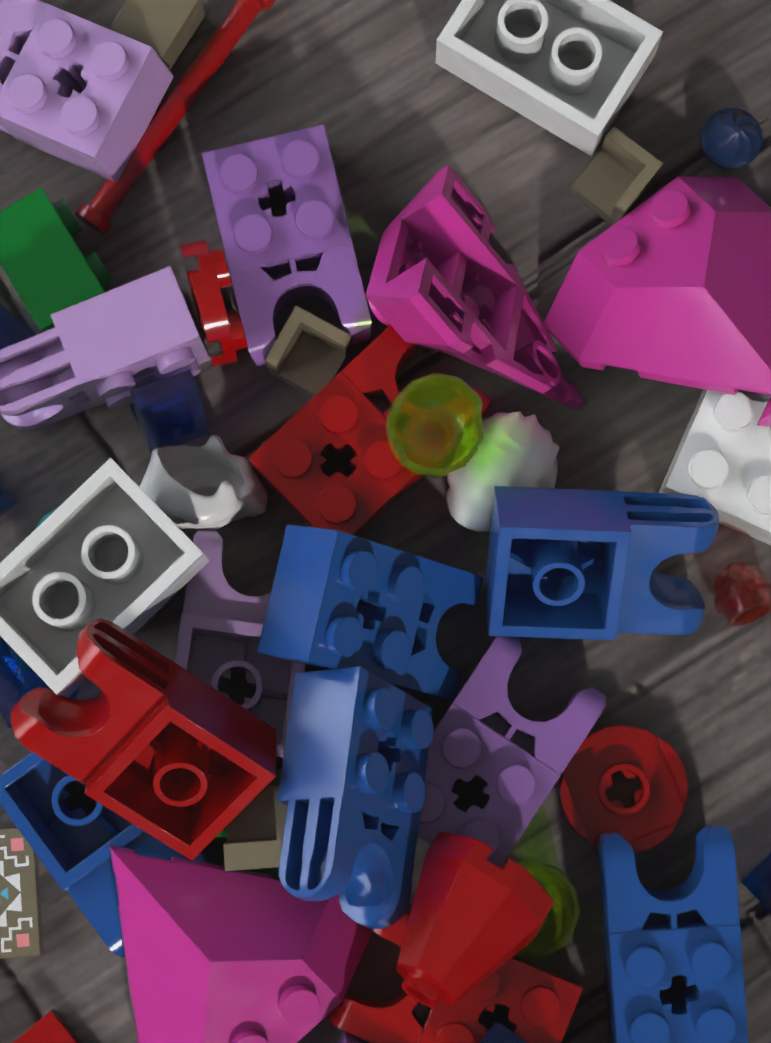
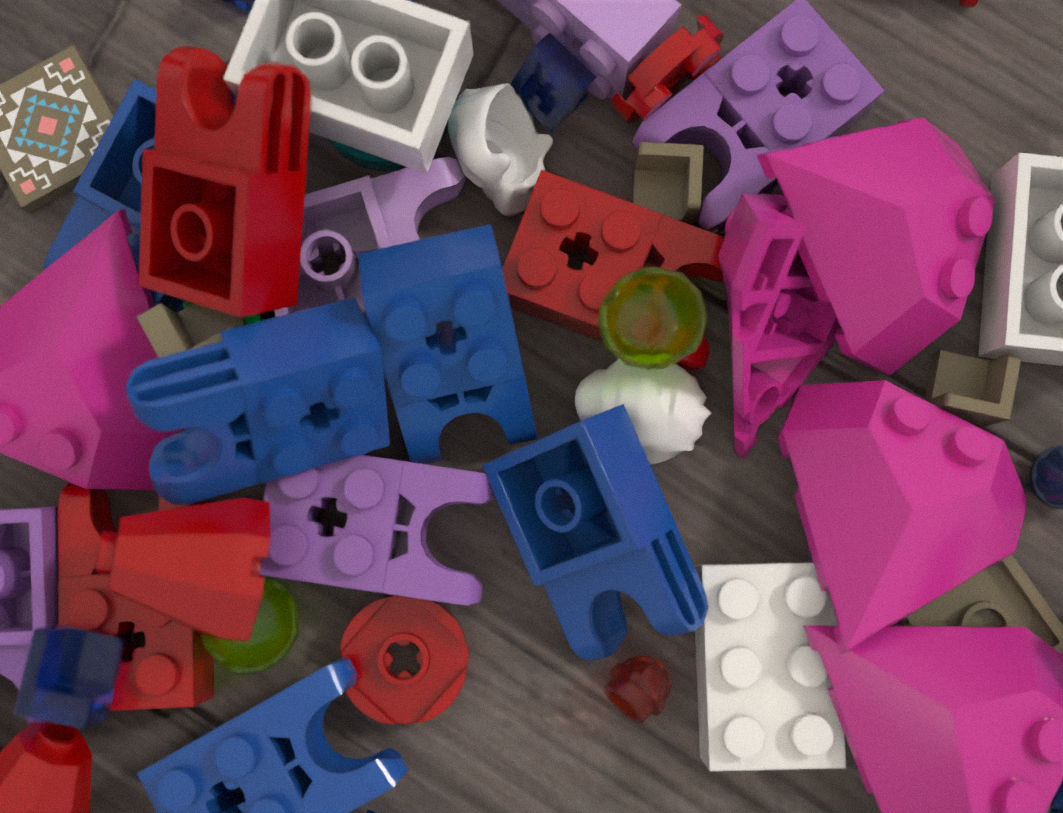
camera: 65 degrees right, 0 degrees up
(449, 182) = (887, 233): none -> dark pink wedge

